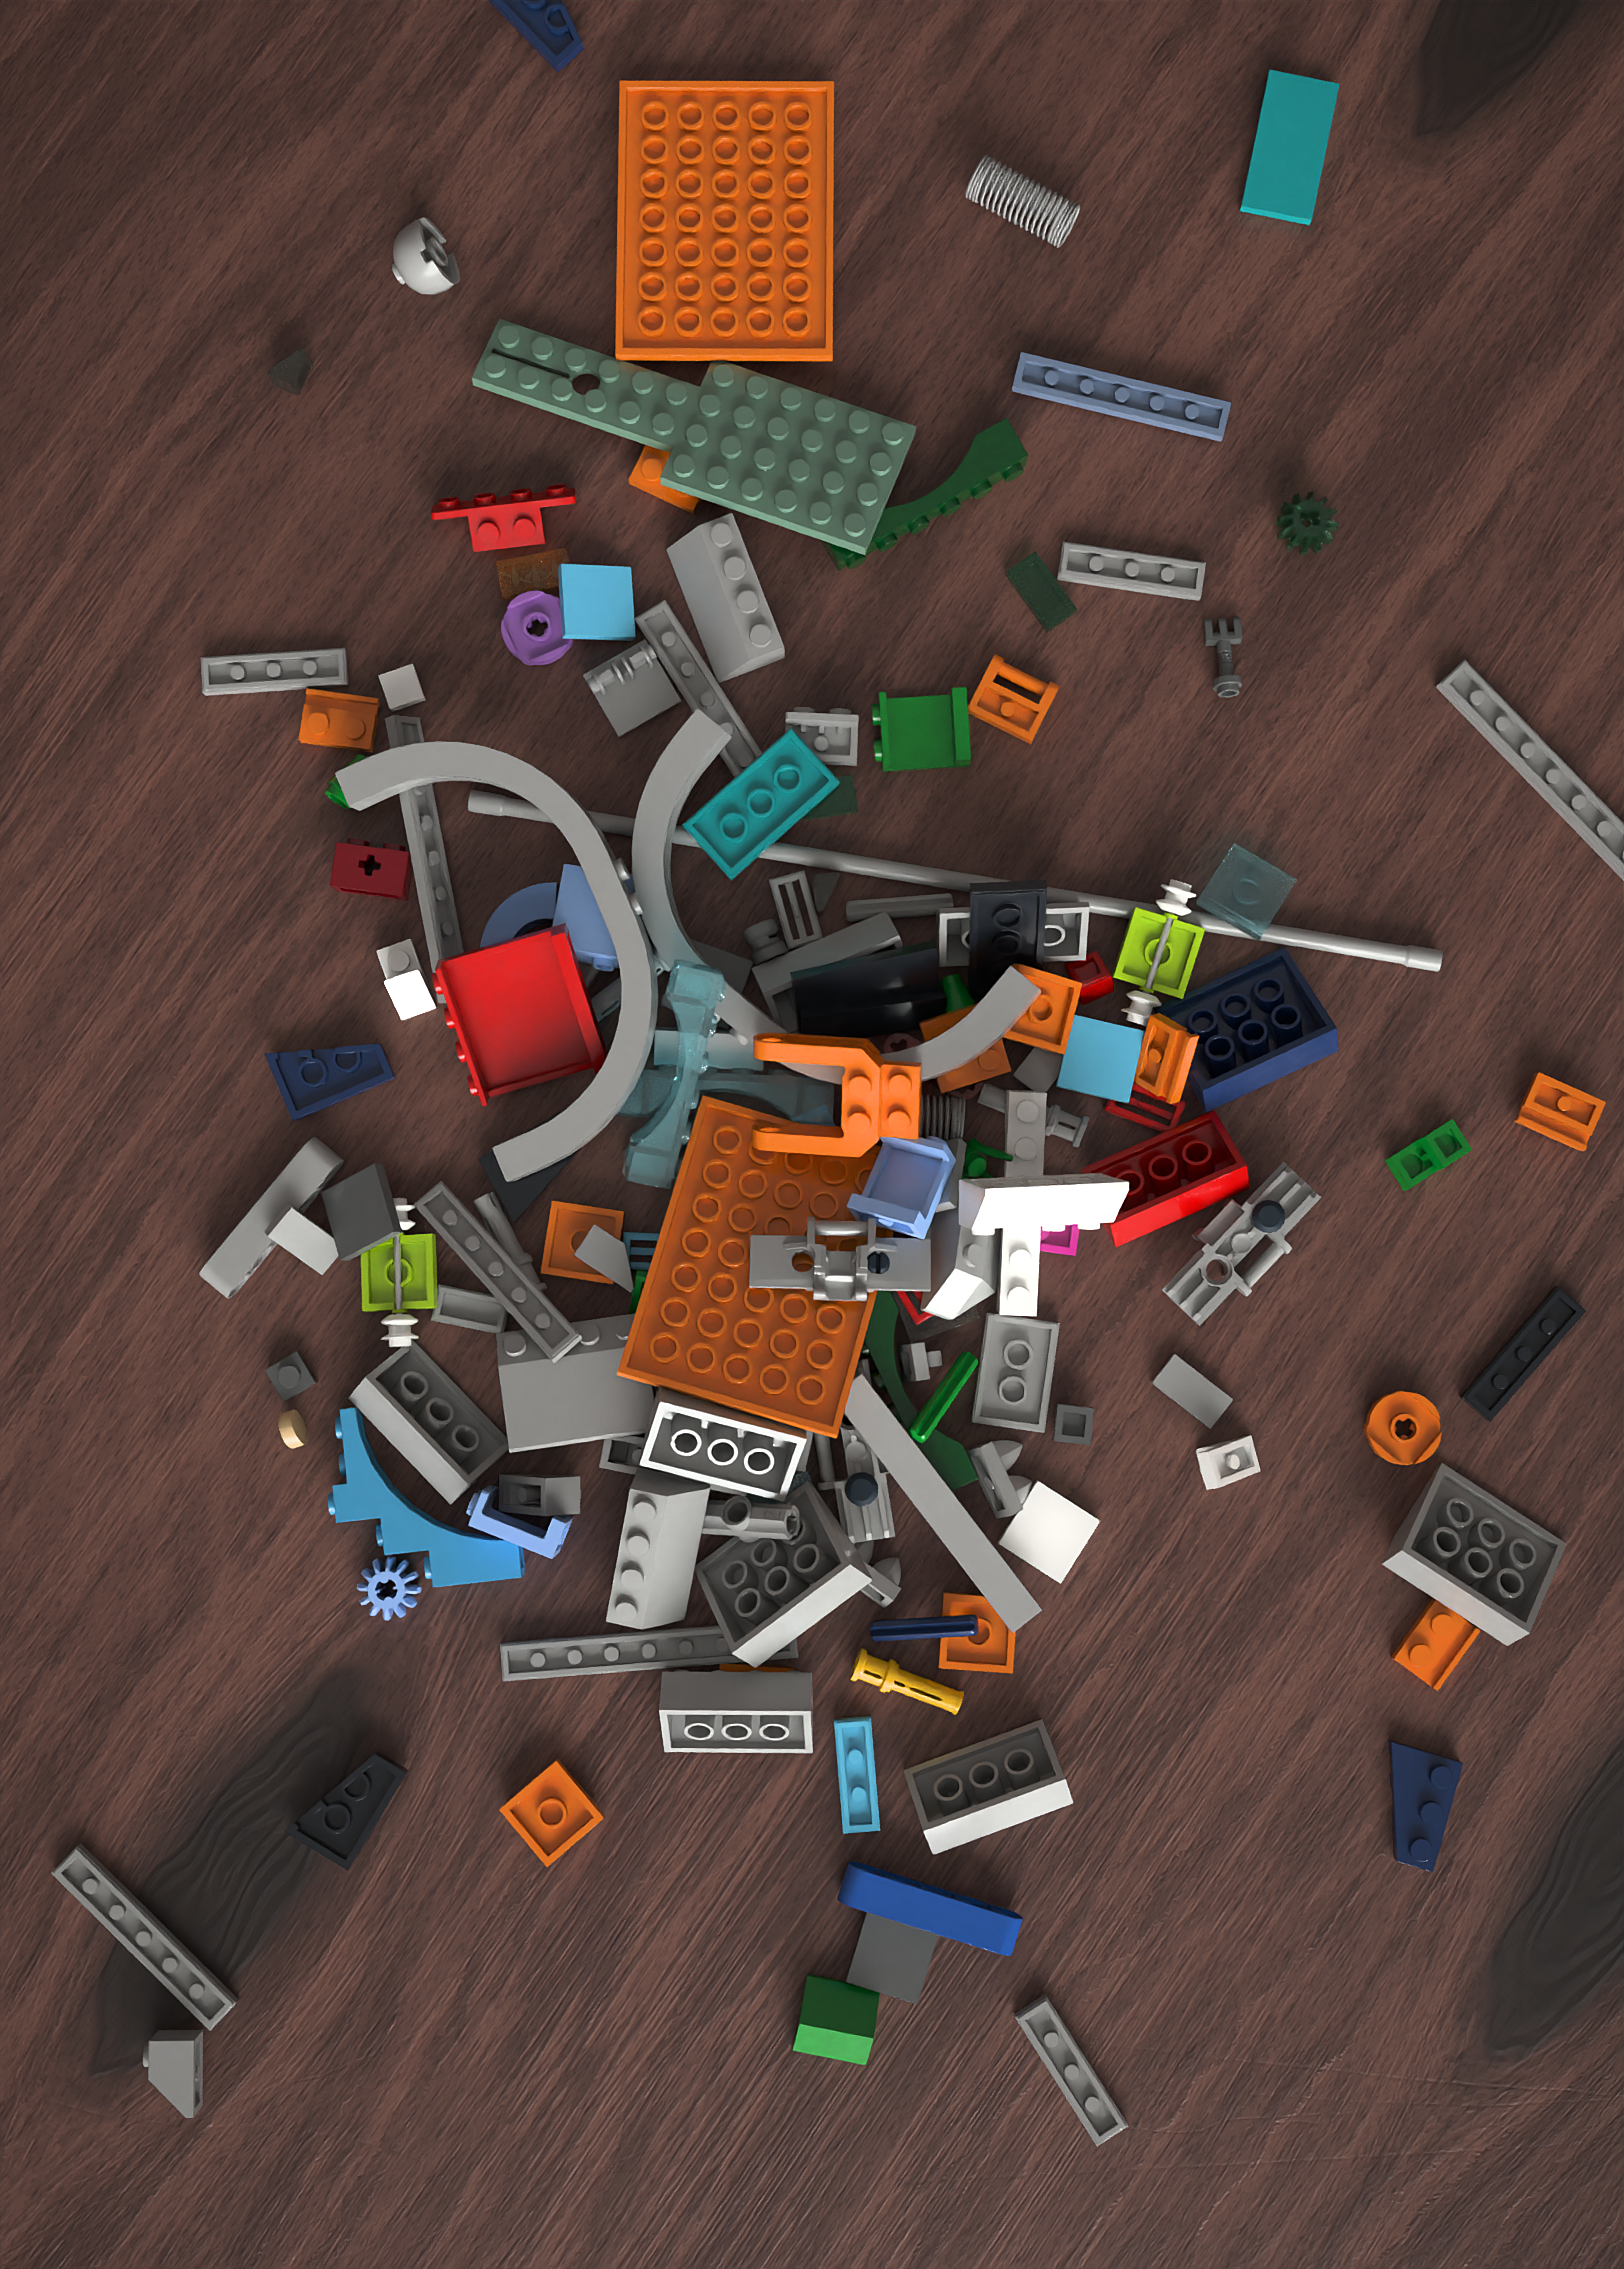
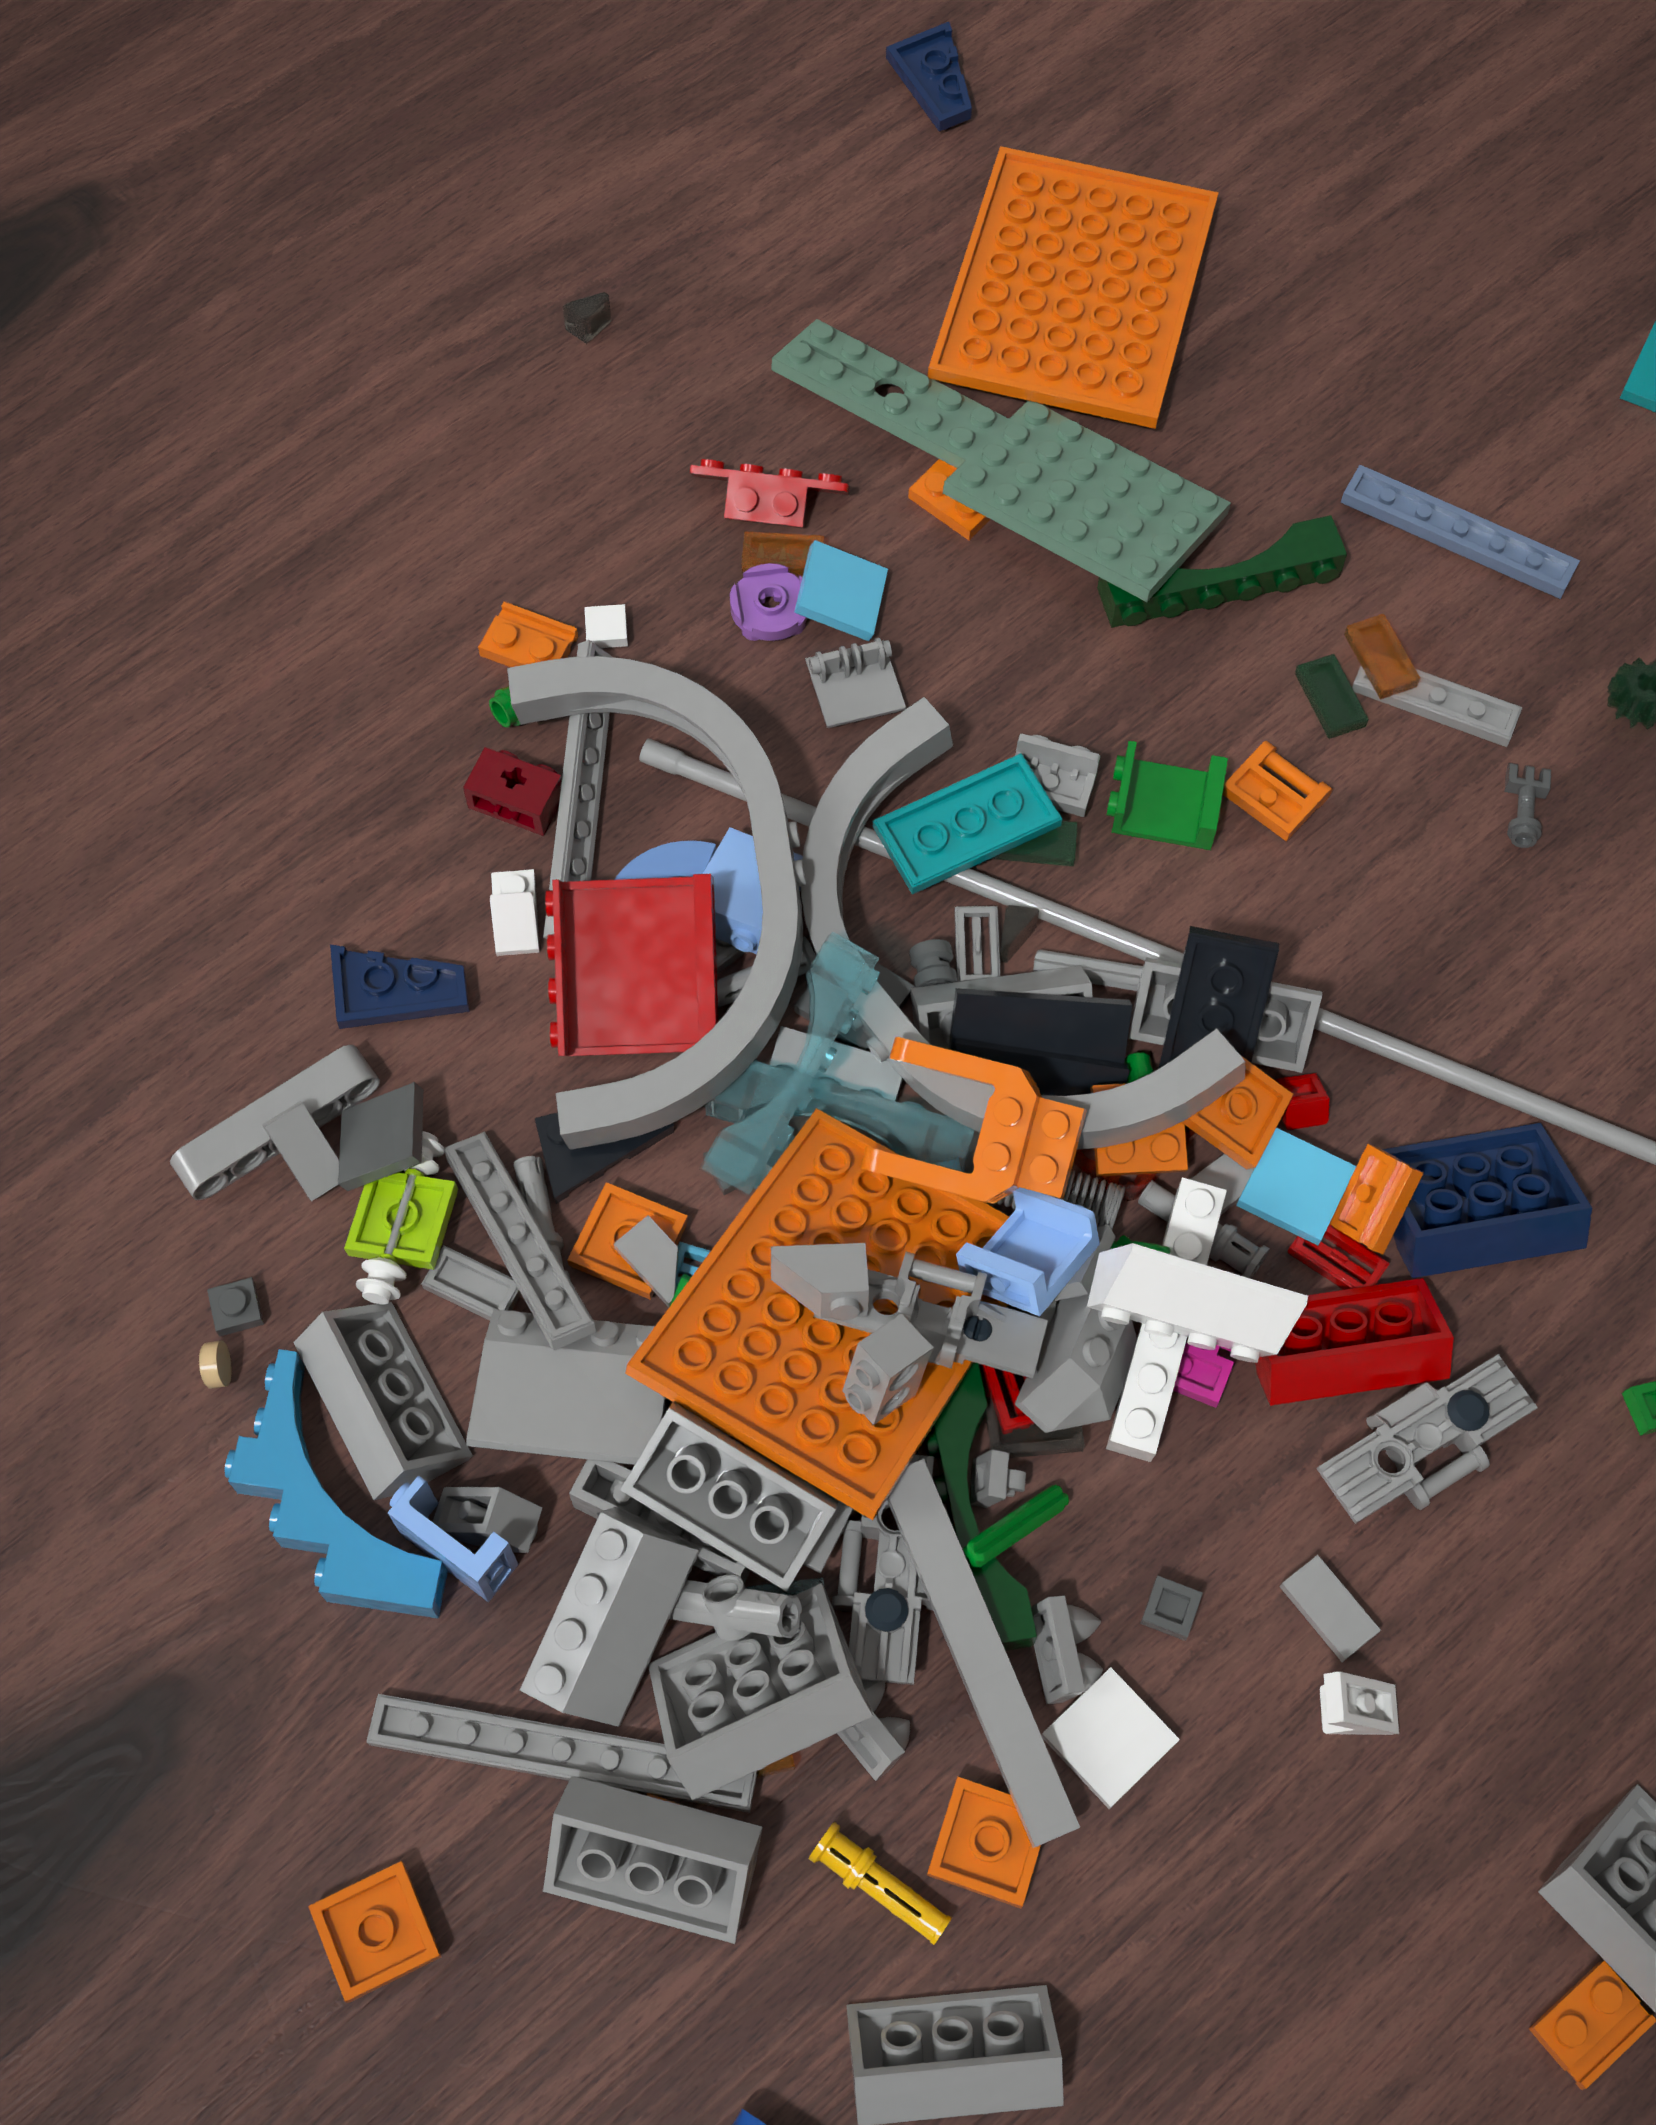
camera: 10 degrees right, 20 degrees down
(274, 671) = (475, 580): light grey tile -> none
(350, 1812) = (116, 1862): black wing -> none
(382, 1574) = (251, 1598): light blue gear -> none
(422, 260) = (754, 247): light grey cylinder -> none
(697, 683) = (920, 678): light grey tile -> none
(725, 599) = (983, 621): light grey slope -> none
(751, 1259) = (824, 1277): none -> light grey slope
(817, 1326) = (886, 1369): none -> light grey brick
(856, 1774) = (784, 1994): medium azure tile -> none
(924, 1628) = (922, 1813): dark blue axle -> none
(990, 176) = (1429, 359): light grey piece -> none
(1015, 1372) = (1112, 1529): light grey tile -> none
(1077, 546) = (1382, 656): none -> clear orange tile
(1158, 952) = (1390, 1085): lime plate -> none
(1246, 891) = (1506, 1049): clear light blue tile -> none
(1424, 1425) = (1586, 1751): orange plate -> none

